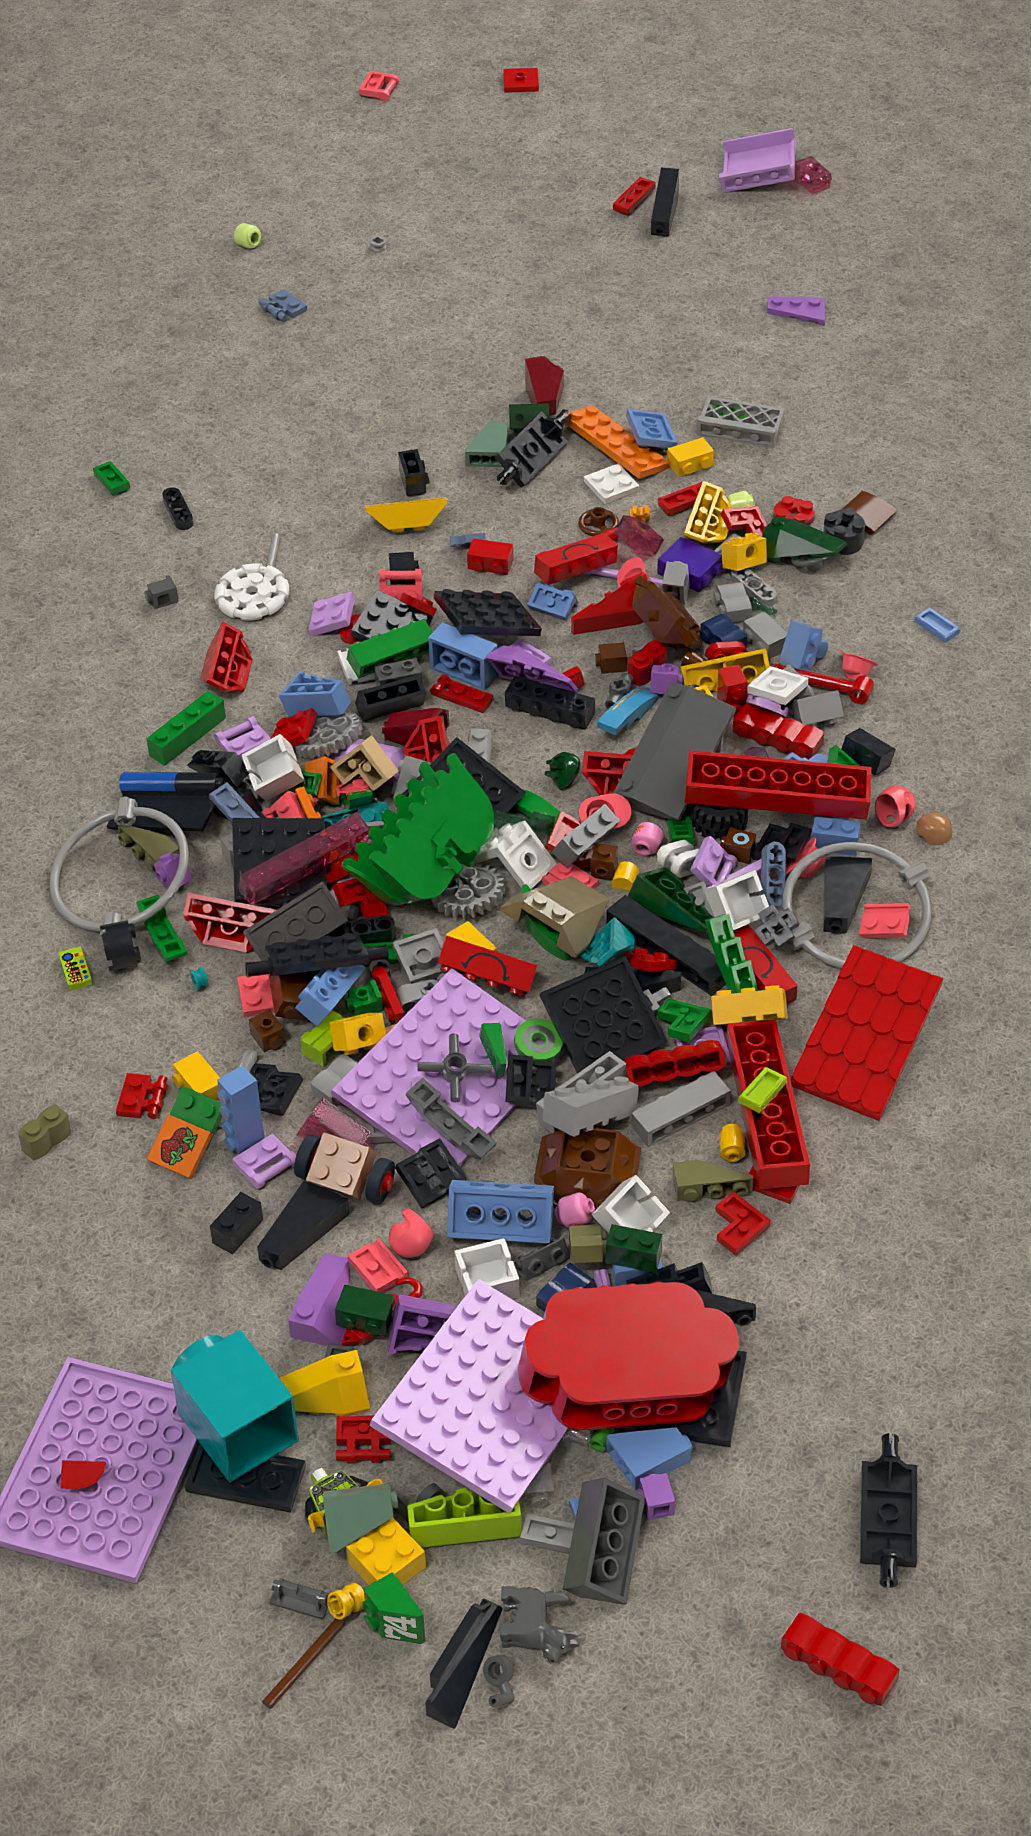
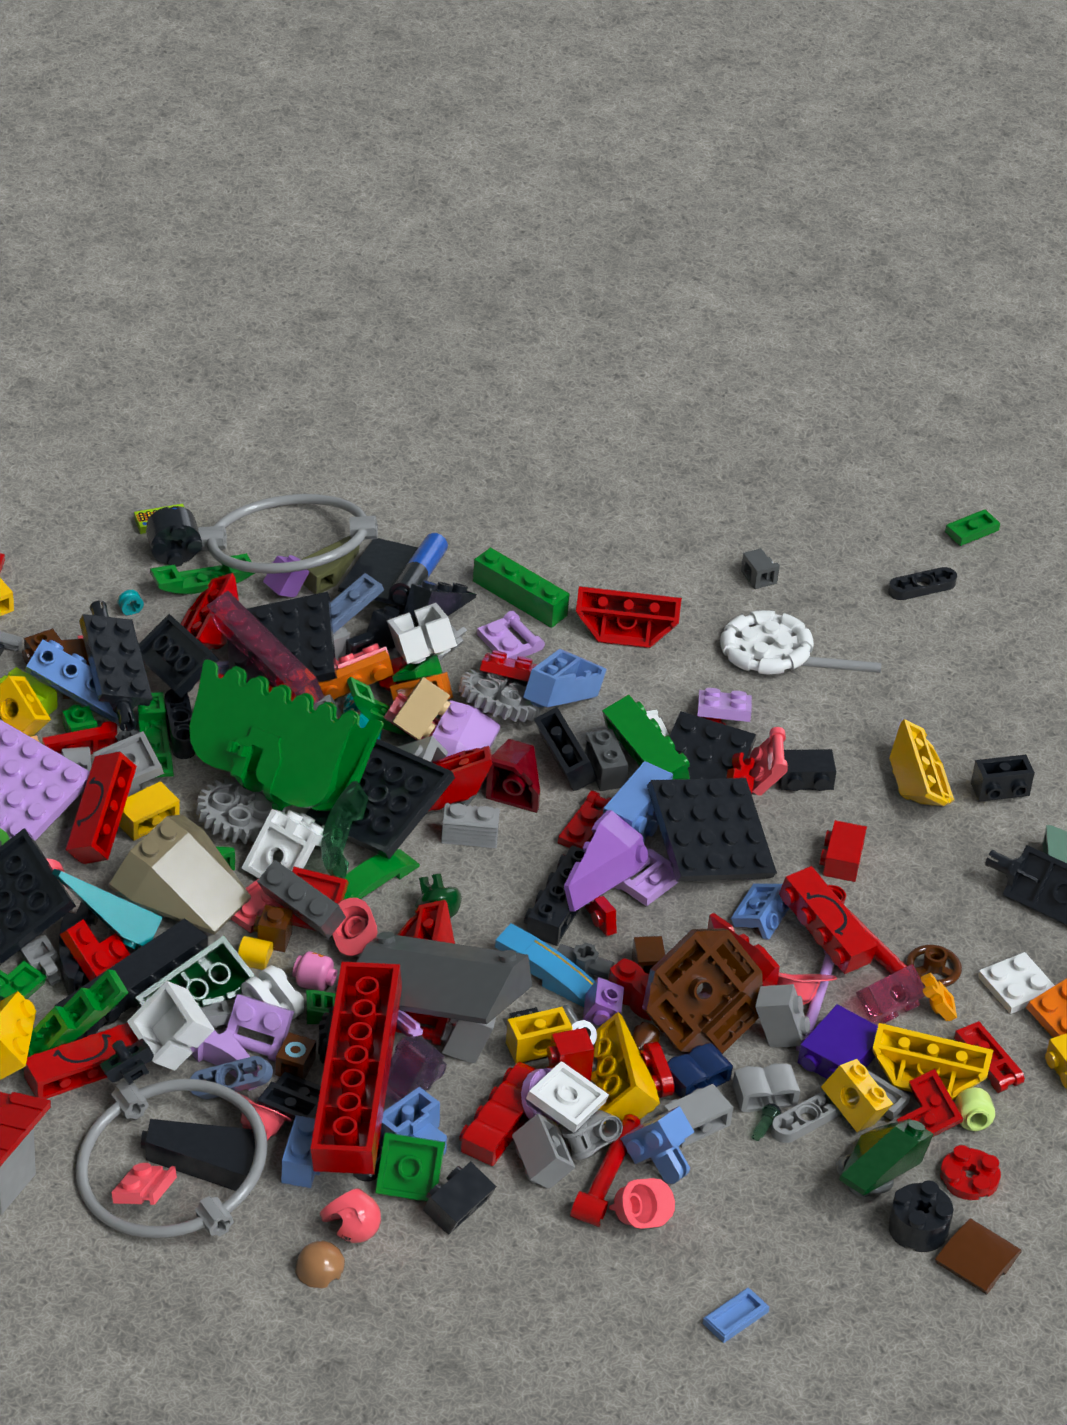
camera: 85 degrees right, 5 degrees down
(466, 539) = (877, 836): sand blue plate -> none

